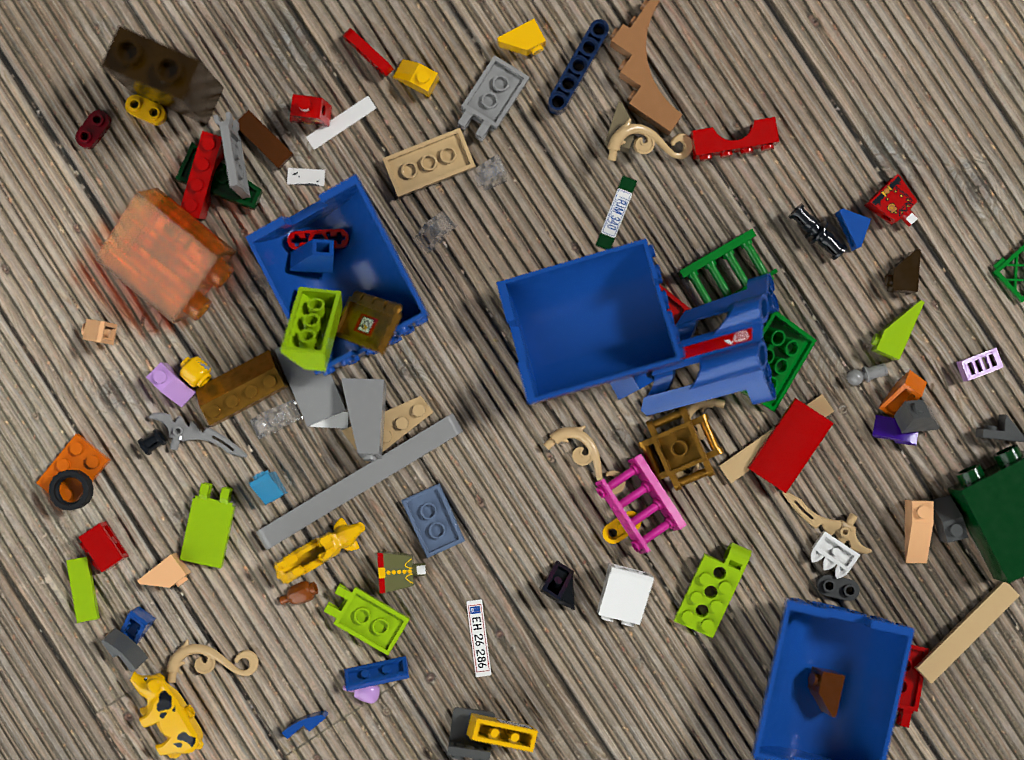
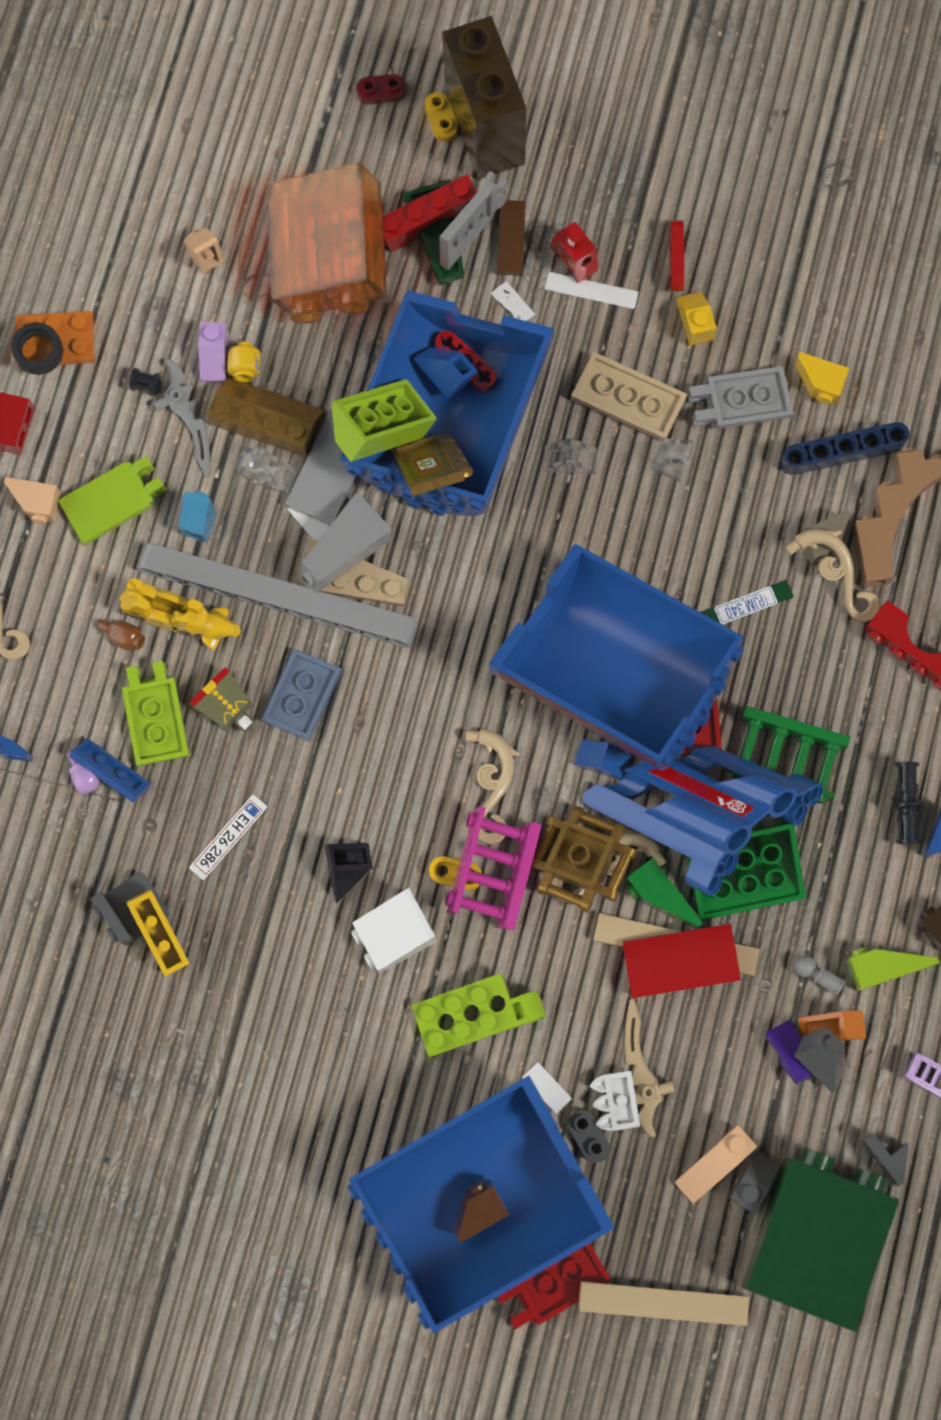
camera: 50 degrees right, 10 degrees down
(734, 421) = (657, 891): none -> green slope
(788, 585) = (548, 1088): none -> white sticker

